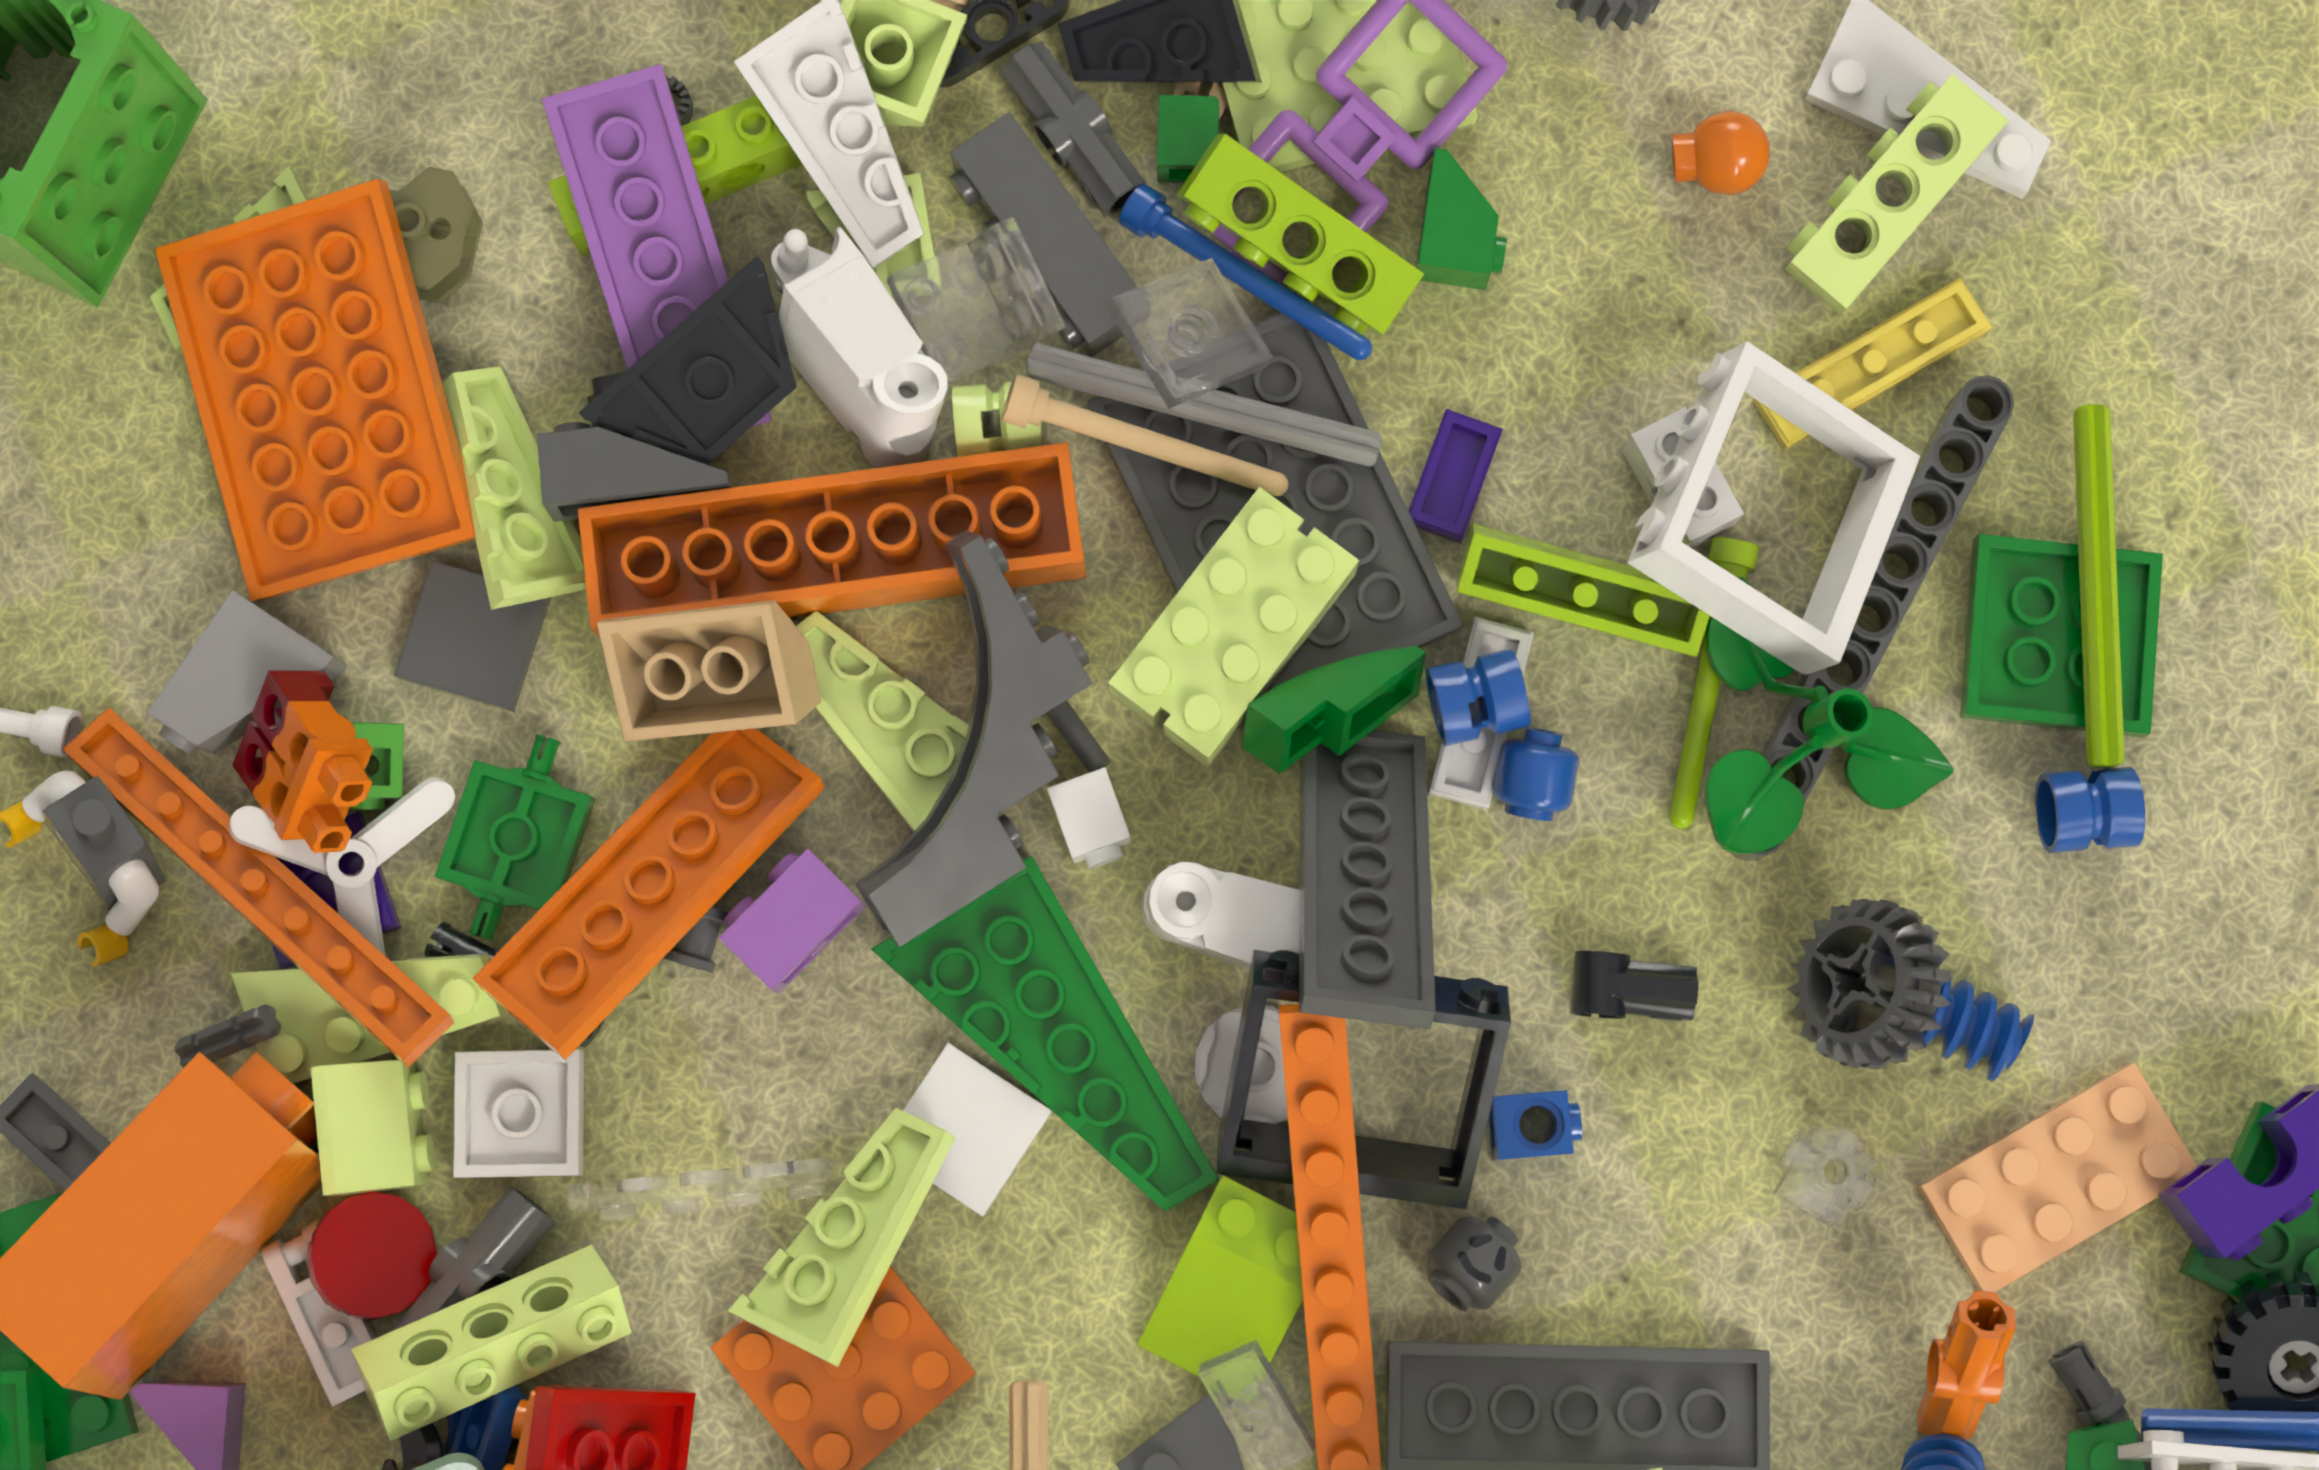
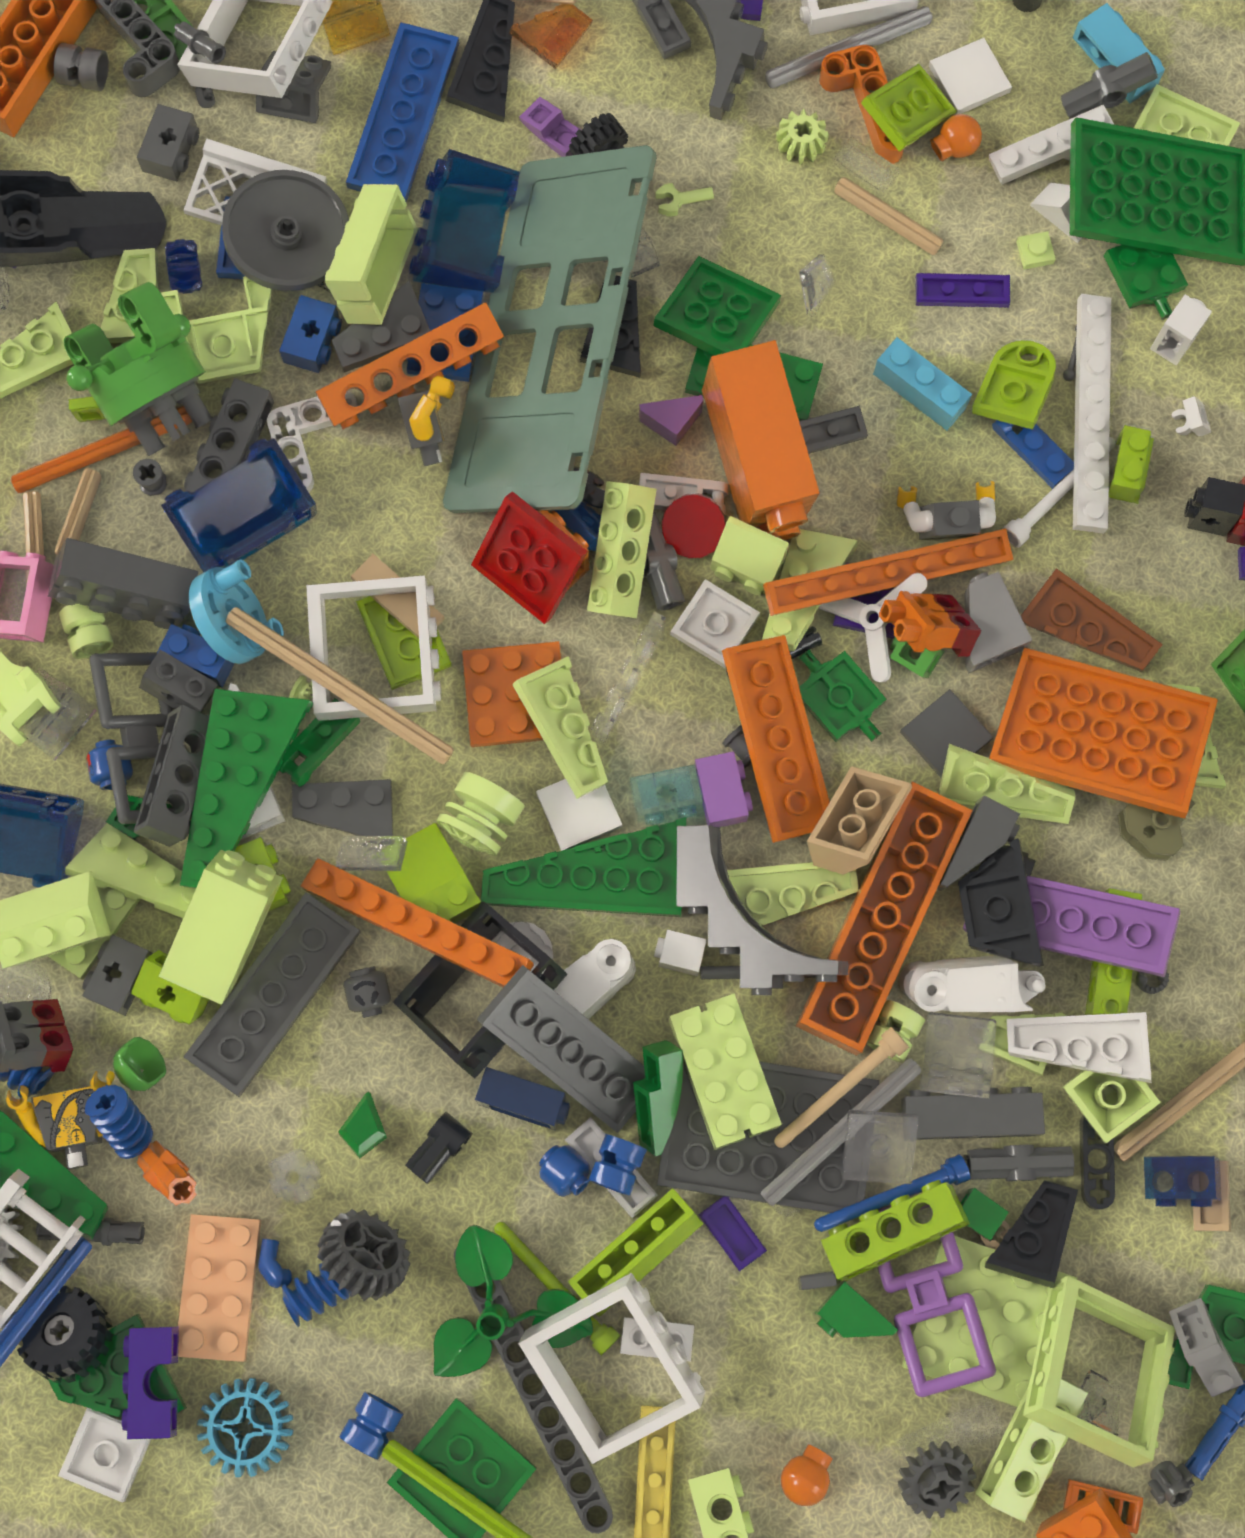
camera: 120 degrees right, 5 degrees down
(145, 536) = (1082, 619): none -> dark orange wing
(230, 1035) = (829, 522): dark grey axle -> none
(819, 993) = (648, 789): none -> clear light blue brick
(1082, 1273) = (482, 811): none -> yellowish green wheel
(1441, 309) = (817, 1280): none -> dark grey tile
(1479, 901) = (522, 1099): none -> dark blue window
(1505, 1130) = (408, 1043): blue brick -> none
(1680, 1123) = (363, 1127): none -> green piece
(1977, 1121) = (270, 1268): none -> blue arm
(2236, 1015) = (247, 1411): none -> medium azure gear

